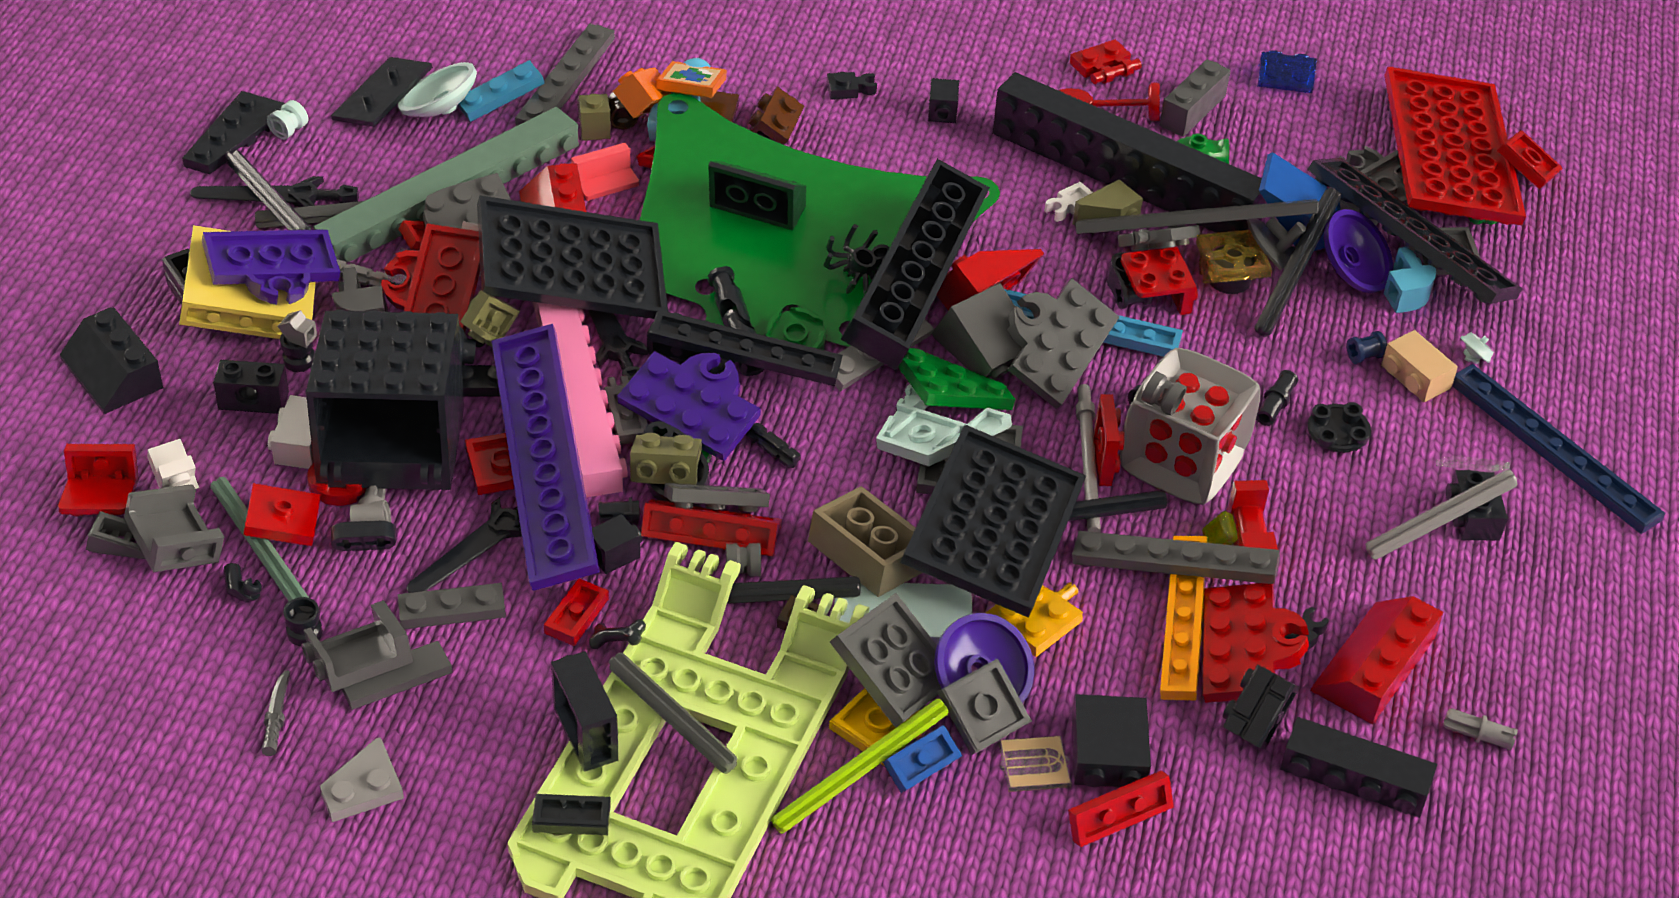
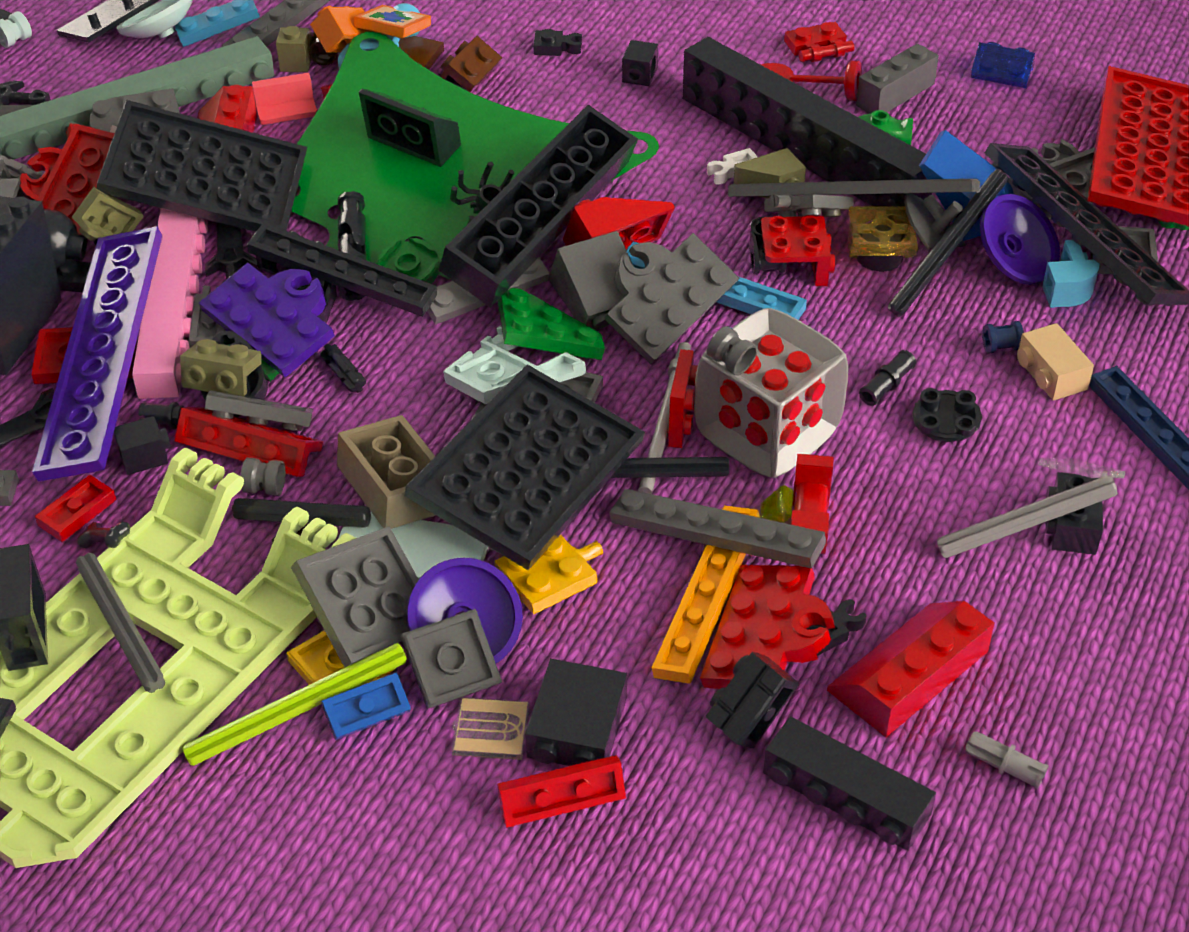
camera: 15 degrees right, 0 degrees up
(1476, 348) = (1125, 350): light aqua hat -> none

